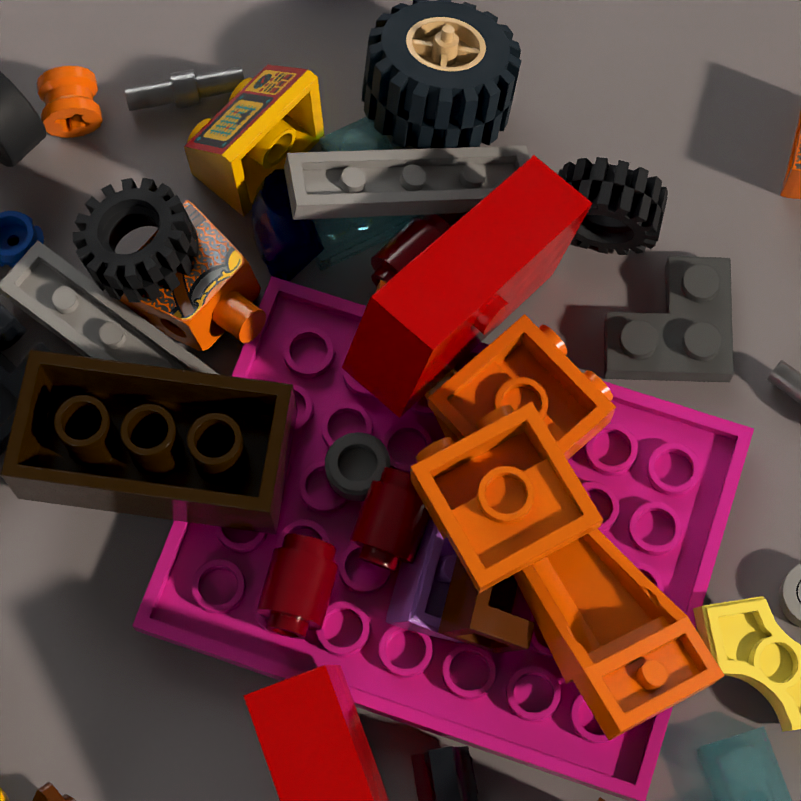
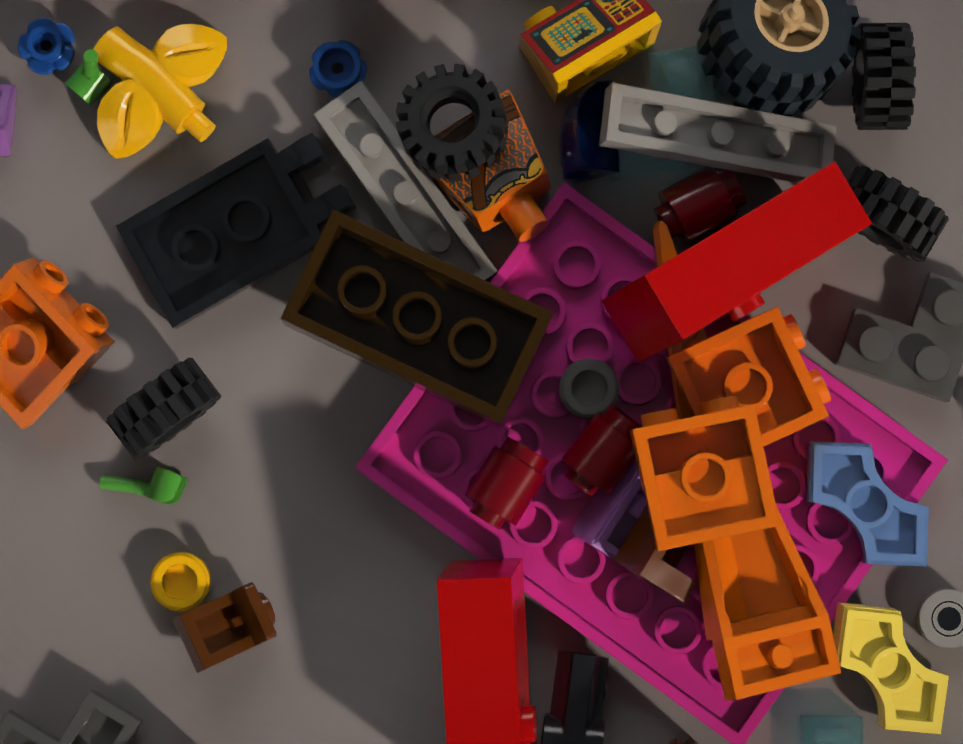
camera: 15 degrees right, 15 degrees up
(557, 85) = (884, 77): none -> black tyre
(714, 509) = (886, 525): none -> medium blue tile

